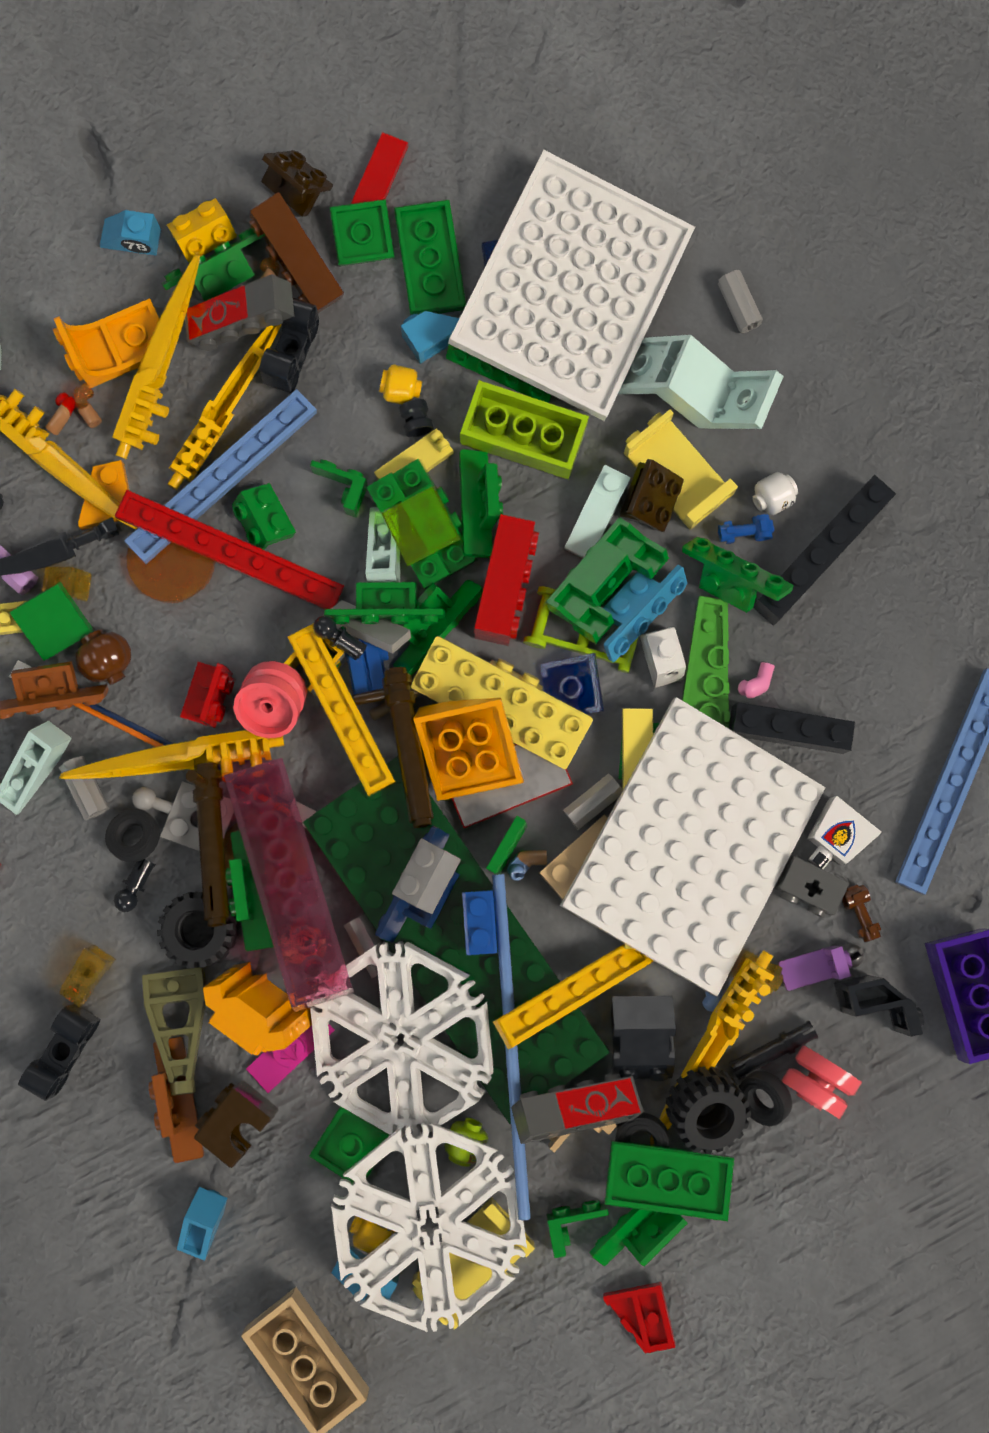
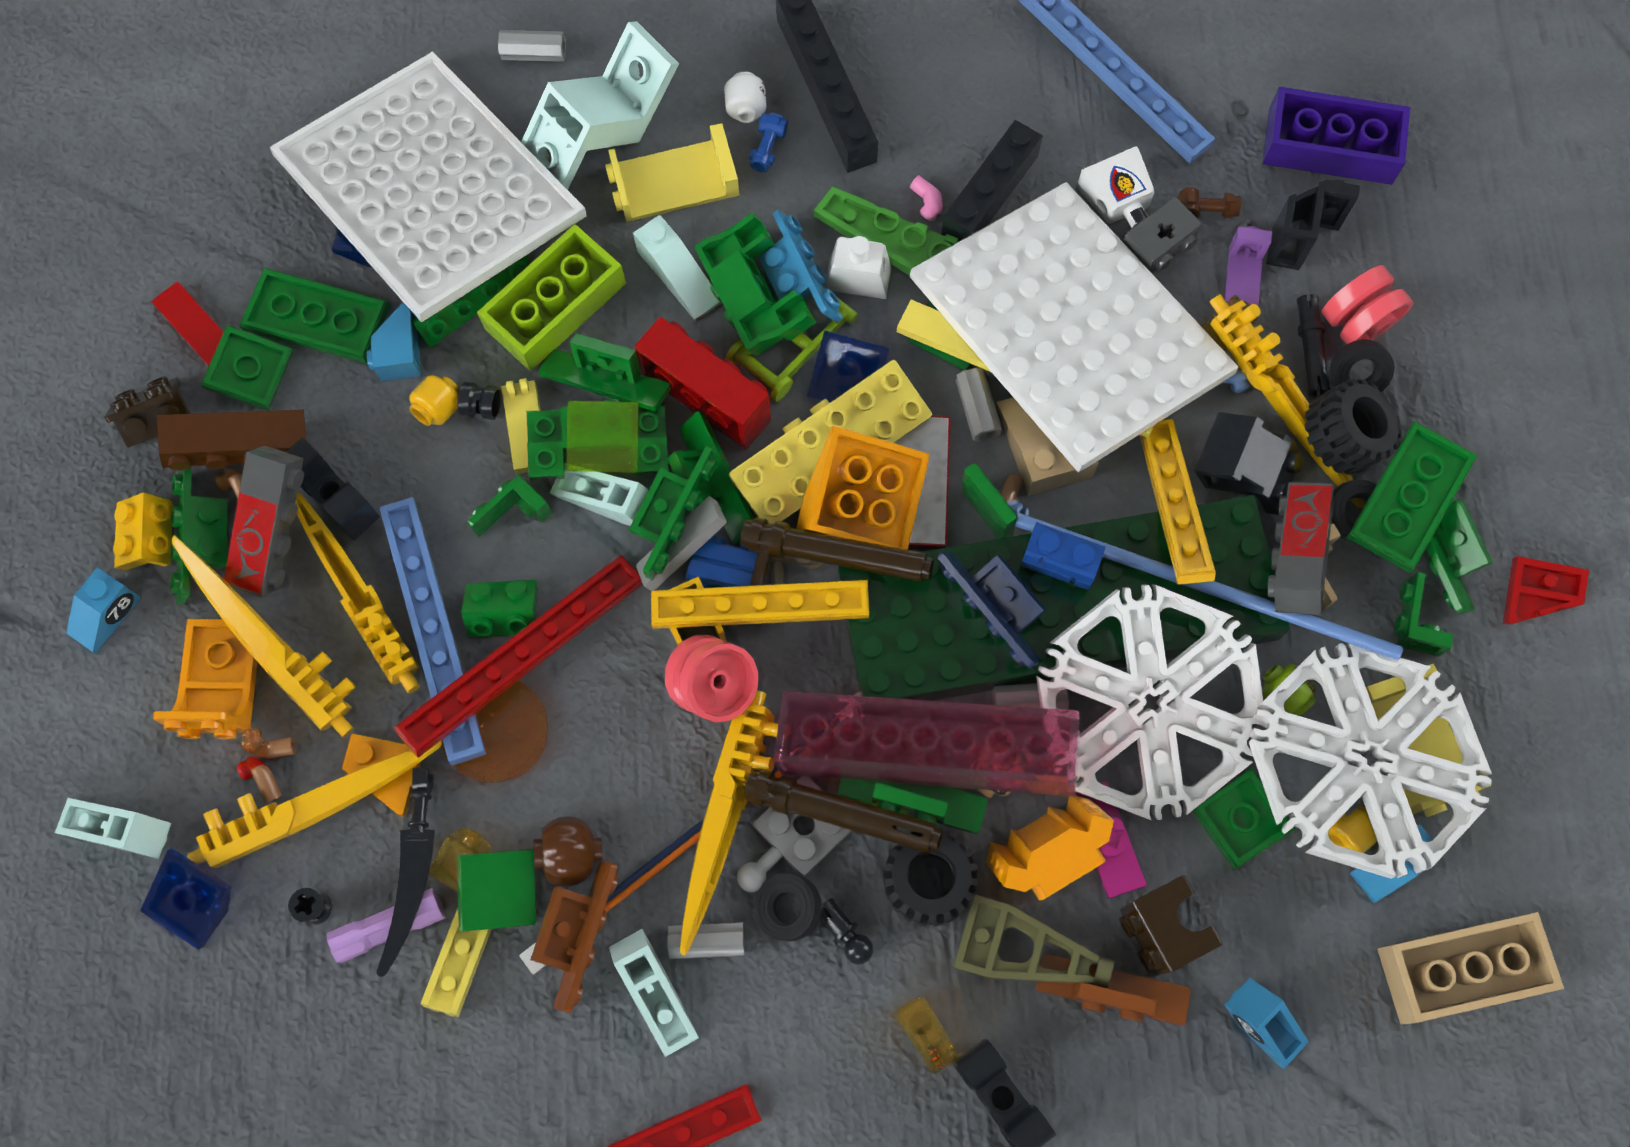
camera: 60 degrees left, 10 degrees down
(207, 694) = (668, 753): red bracket -> none
(326, 628) = (664, 577): black pin -> none
(426, 876) = (990, 582): light grey brick -> none
(652, 495) = (686, 208): dark brown bracket -> none
(733, 577) = (813, 168): green bracket -> none

